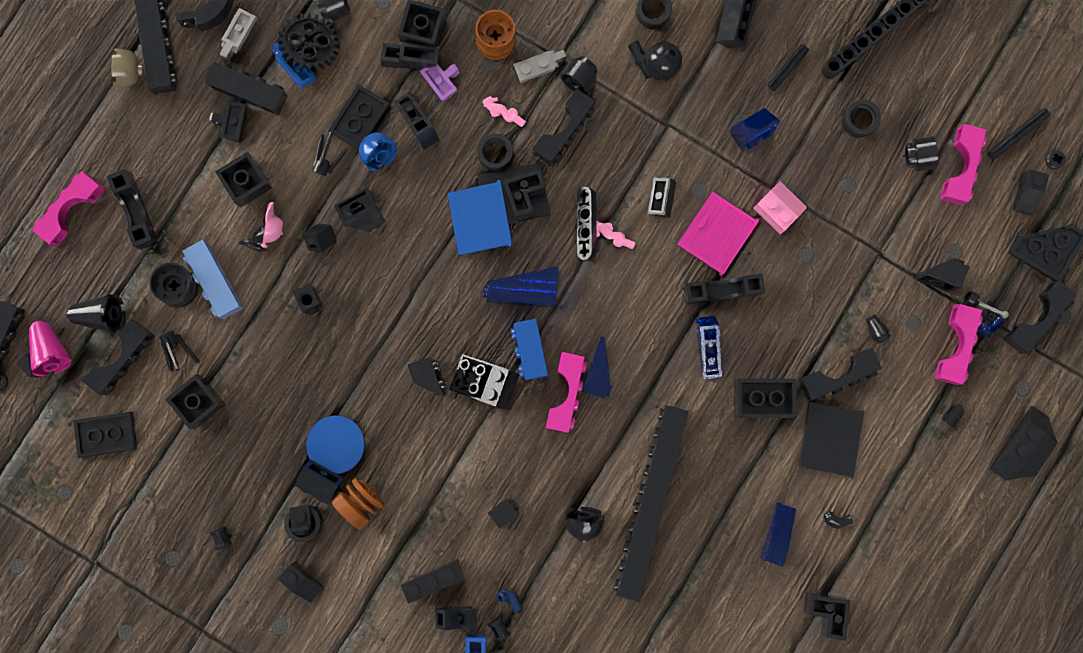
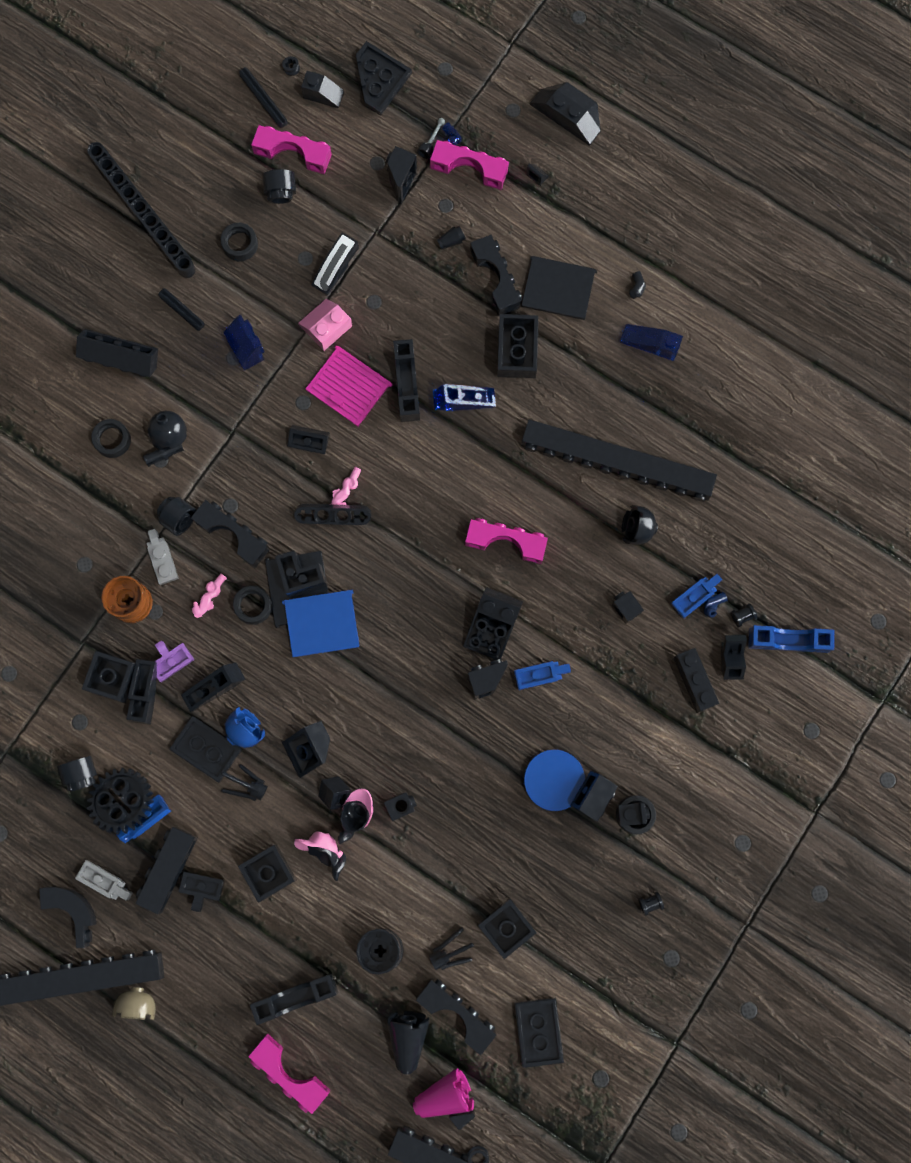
camera: 90 degrees left, 5 degrees down
(212, 279) = (374, 909): medium blue brick -> none
(297, 257) = (355, 814): none -> black hair
(300, 582) = (696, 818): black slope -> none
(355, 506) = (616, 754): dark orange wheel -> none
(435, 428) = (540, 674): none -> blue hinge
(517, 581) = (696, 595): none -> blue hinge
(529, 289) = (398, 573): clear blue slope -> none
(529, 349) = (461, 575): blue brick -> none
(598, 375) = (488, 507): clear blue slope -> none
(834, 613) = (727, 292): black brick -> none
(843, 214) = (335, 263): none -> slope
(1055, 300) = (429, 74): black arch -> none

